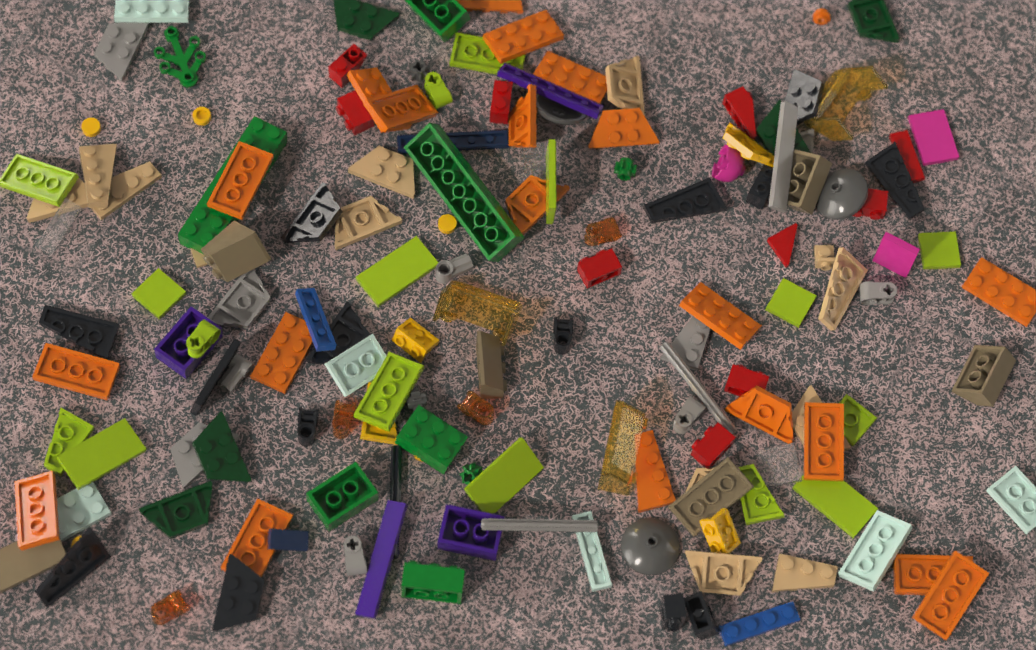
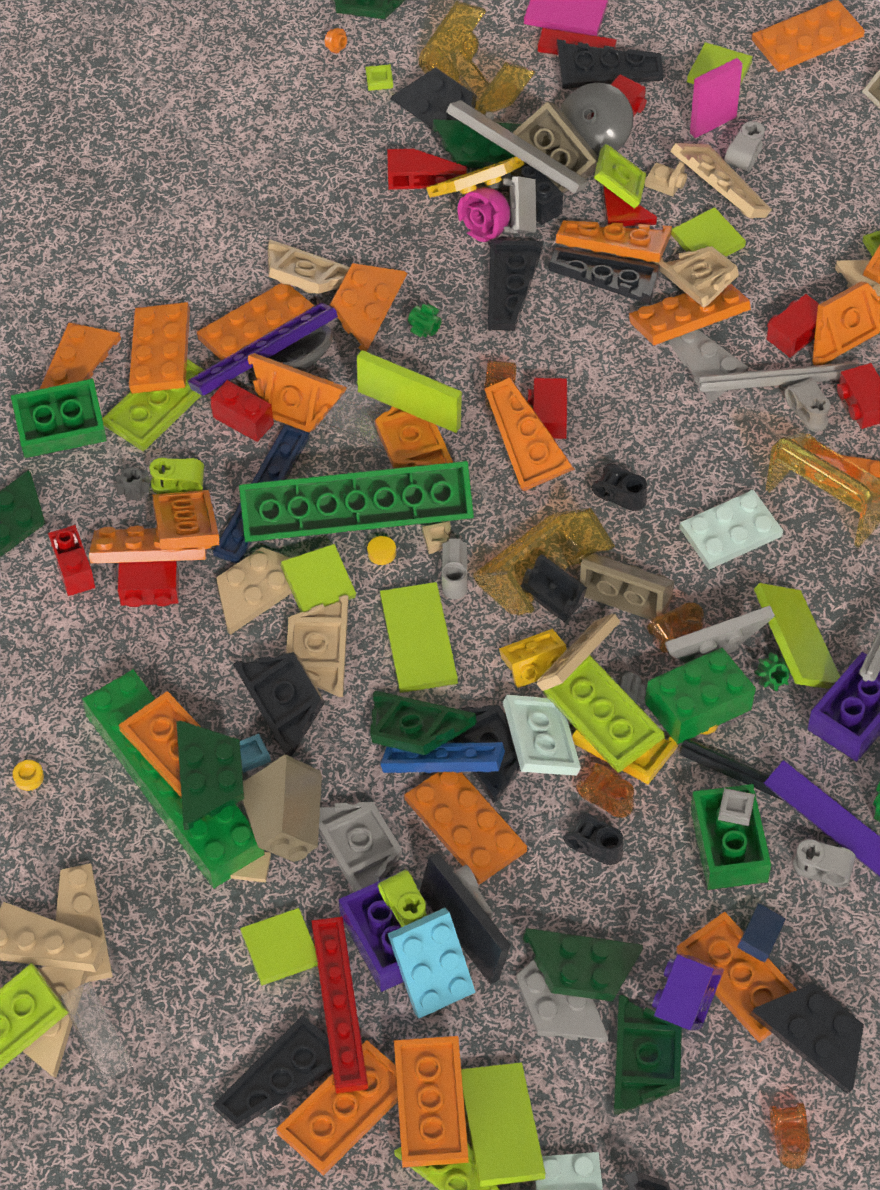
camera: 55 degrees left, 10 degrees down
(94, 410) = (430, 1101): none -> orange plate
(132, 339) = (339, 1005): none -> red tile
(175, 372) = (431, 963): none -> medium azure plate
(218, 512) = (687, 991): none -> dark purple brick
(228, 200) = (208, 772): none -> dark green wing
(273, 220) = (253, 753): none -> medium azure tile
(330, 294) = (415, 724): none -> dark green wing
(355, 488) = (736, 807): none -> light grey tile
(405, 199) = (317, 578): none -> lime tile
(423, 359) = (578, 652): none -> tan tile
(465, 328) = (553, 588): none -> black hinge
(468, 428) = (724, 634): none -> light grey wing
(471, 249) = (436, 535): none -> tan tile
(563, 265) = (528, 442): none -> orange wing
(568, 410) = (731, 529): none -> light aqua plate
(724, 257) = (613, 274): none -> black wing
(741, 181) = (522, 205): none -> light grey hinge
(748, 308) = (700, 273): none -> tan wing
(755, 250) = (615, 239): none -> orange wing
(802, 227) = (620, 175): none -> lime tile
(808, 55) = (379, 77): none -> lime tile

